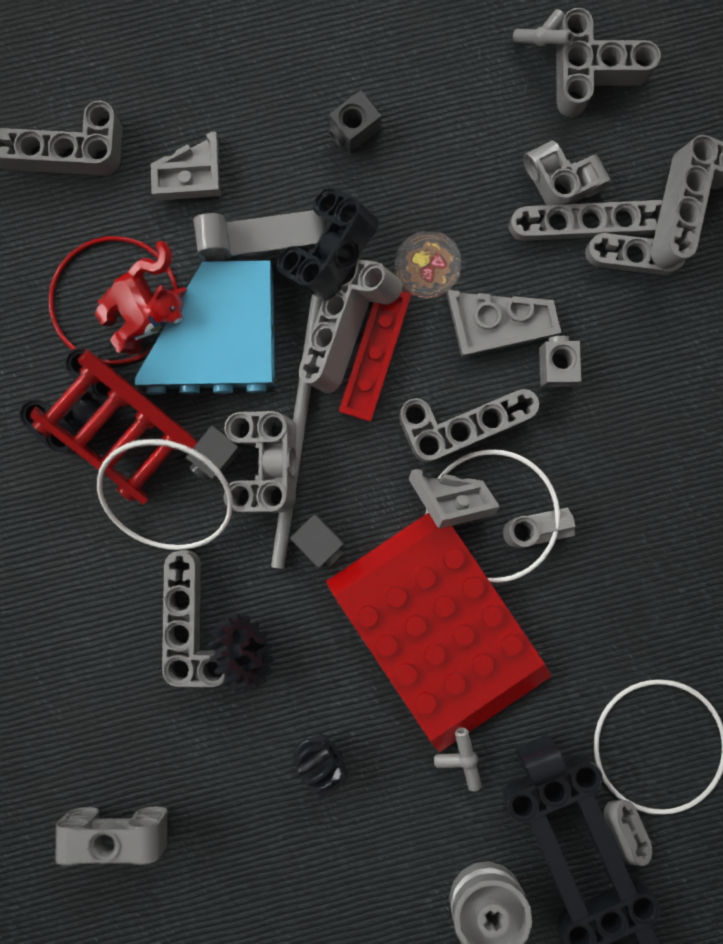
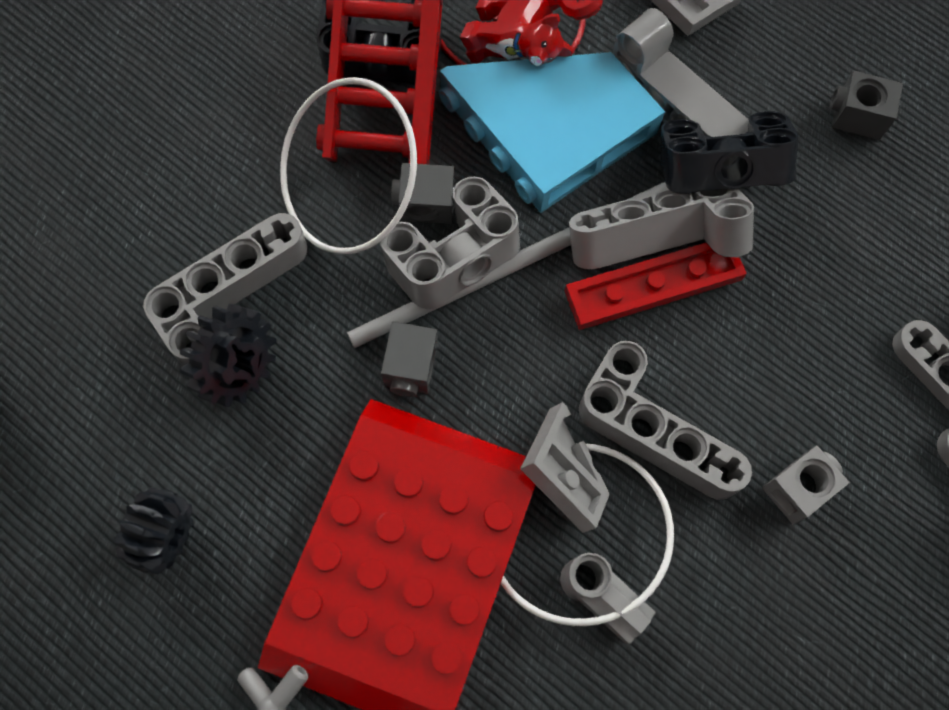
camera: 50 degrees right, 15 degrees down
(428, 264) = (789, 275): clear tile -> none
(499, 322) = (791, 386): light grey wing -> none

